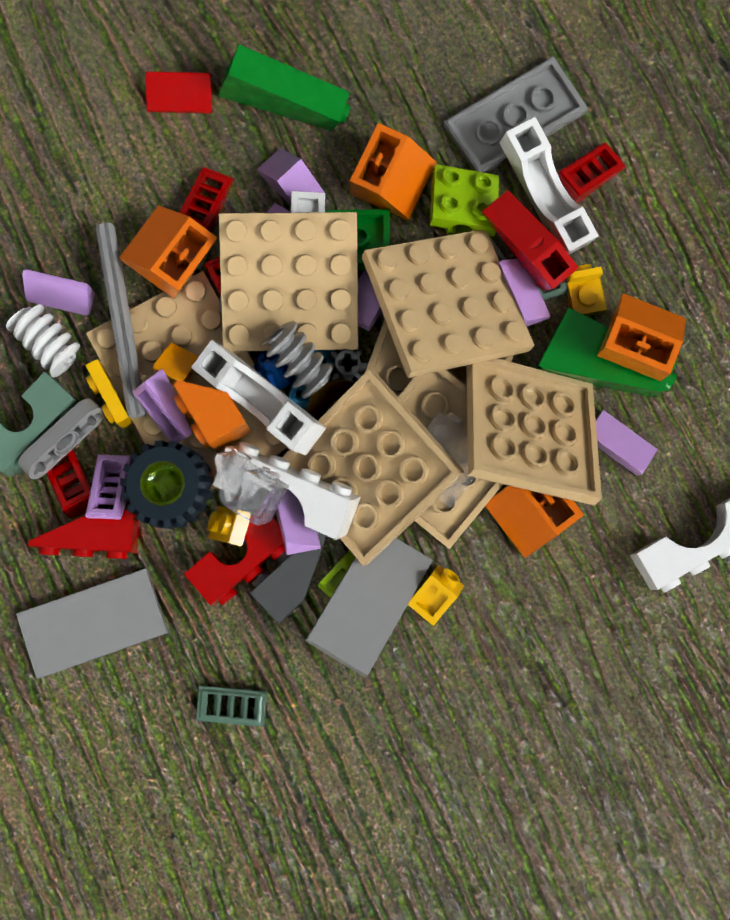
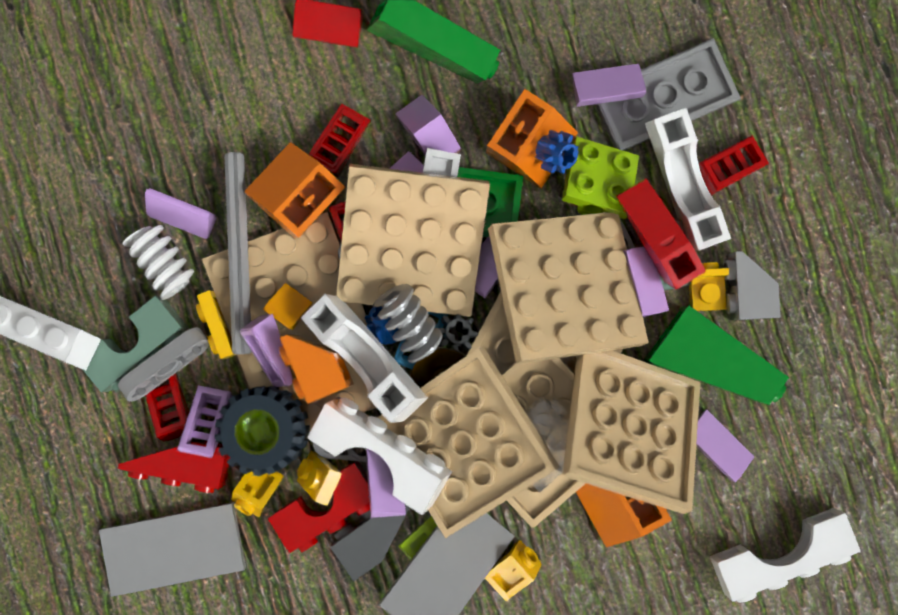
camera: 10 degrees right, 5 degrees up
(168, 551) = (254, 492): none -> yellow bracket
(249, 489) = (341, 451): clear slope -> none
(417, 178) = (556, 152): none -> blue gear
(459, 112) = (608, 85): none -> lavender slope
(625, 277) = (751, 290): none -> light grey slope
(643, 338) = (760, 350): orange slope -> none

